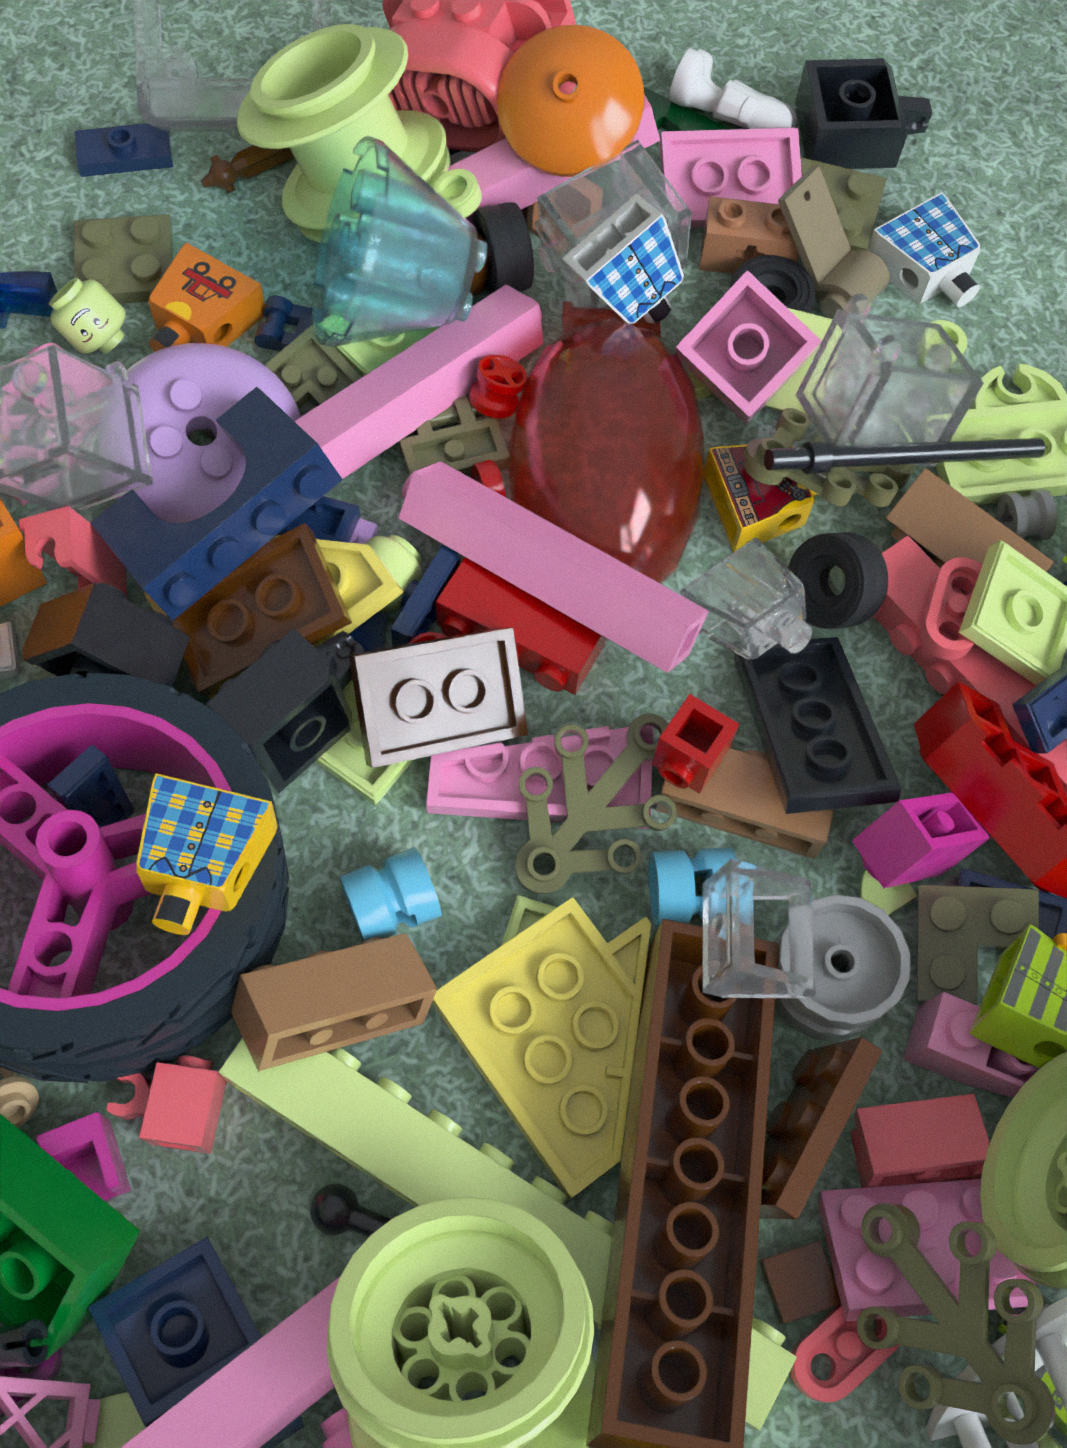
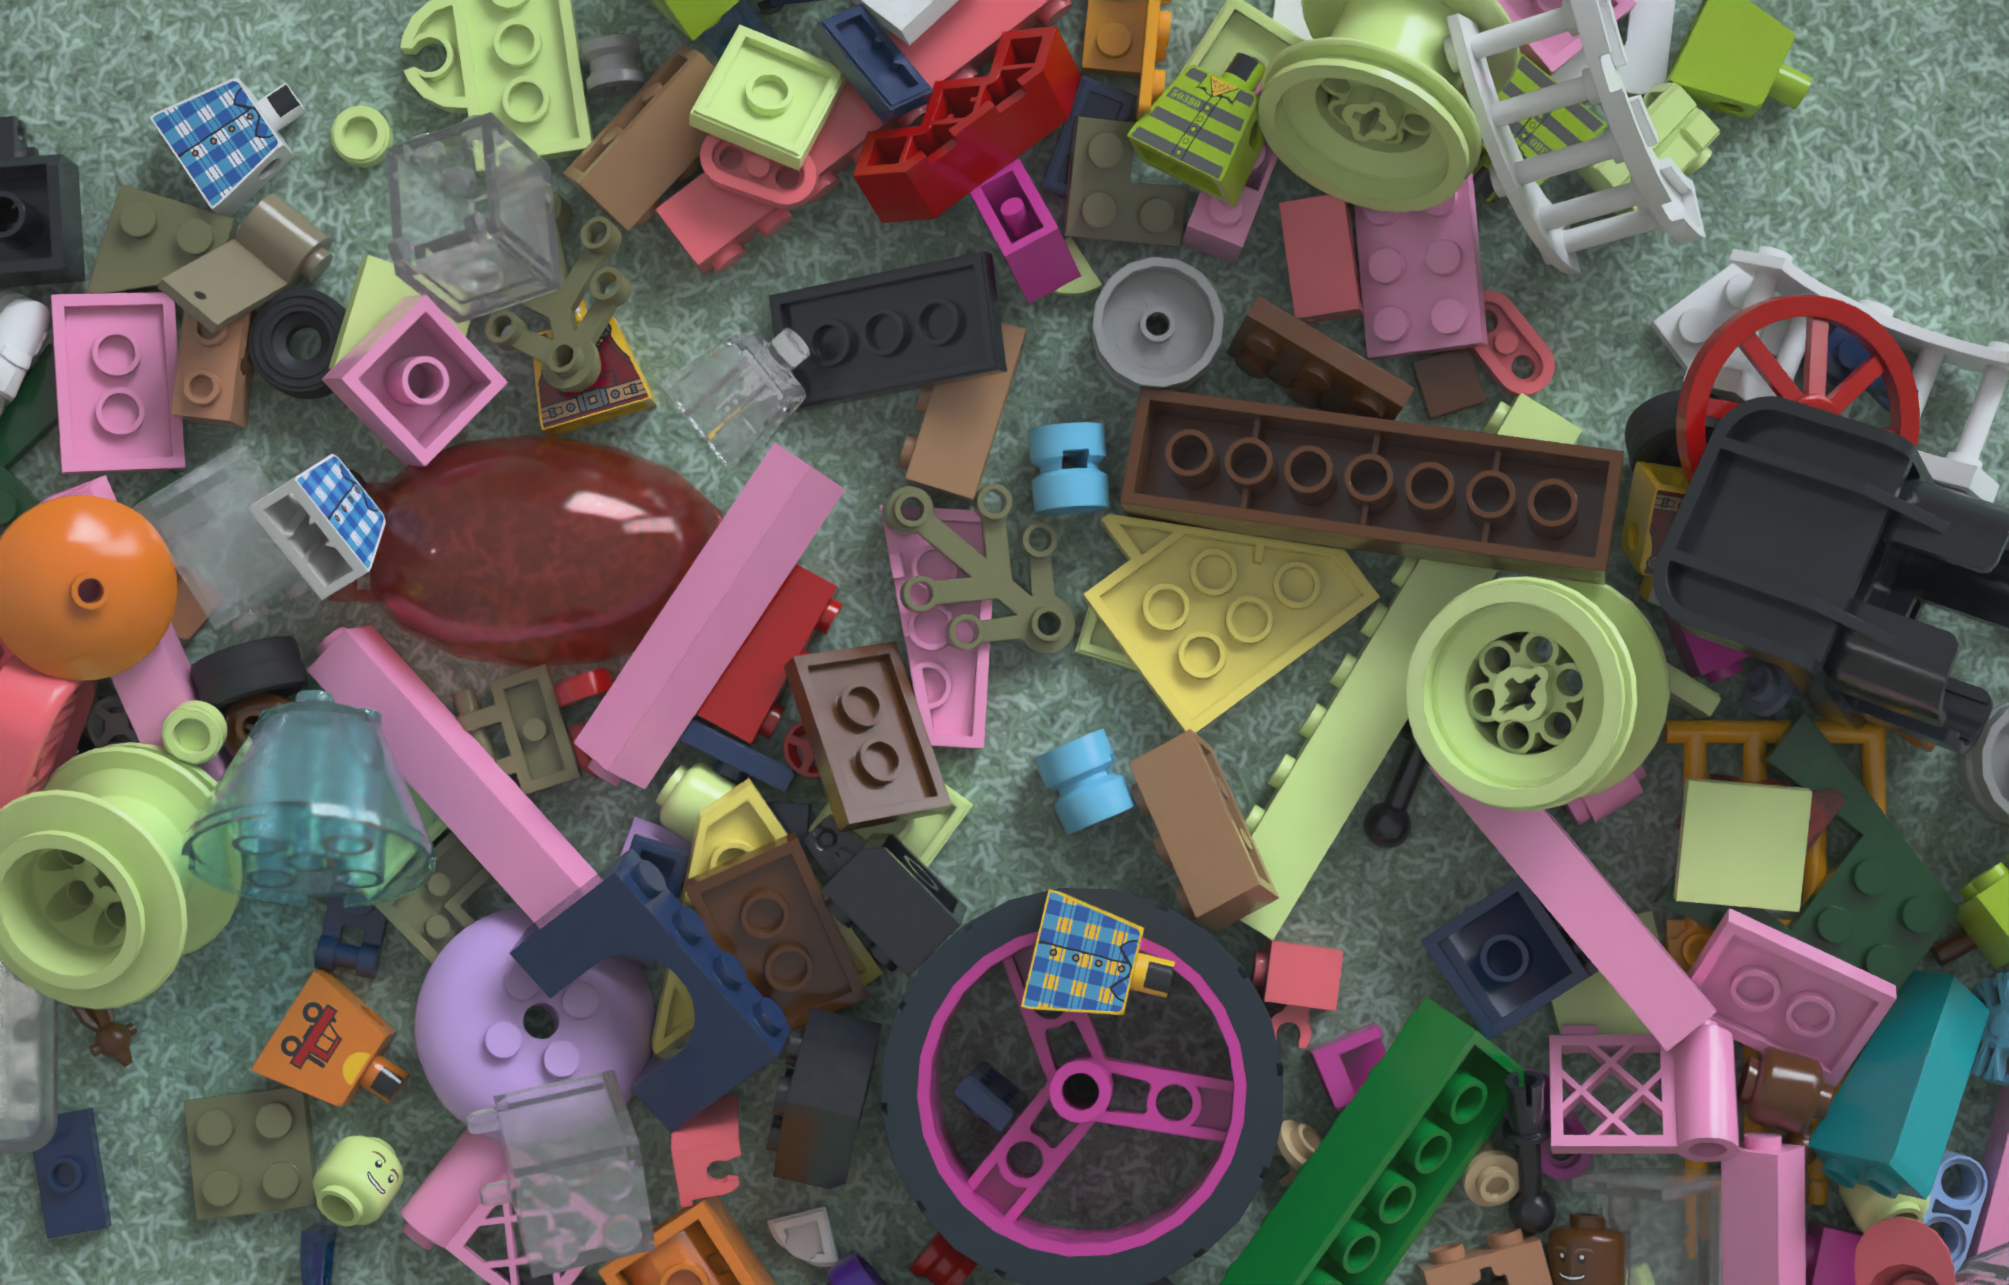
camera: 85 degrees left, 20 degrees up
(497, 386) = (440, 673): red wheel -> none
(693, 744) = (939, 465): red brick -> none
(729, 933) = (1140, 436): clear tile -> none
(821, 456) = (578, 305): black bar -> none
(864, 576) = (705, 268): black tyre -> none
(961, 1328) = (1502, 248): olive plant -> none

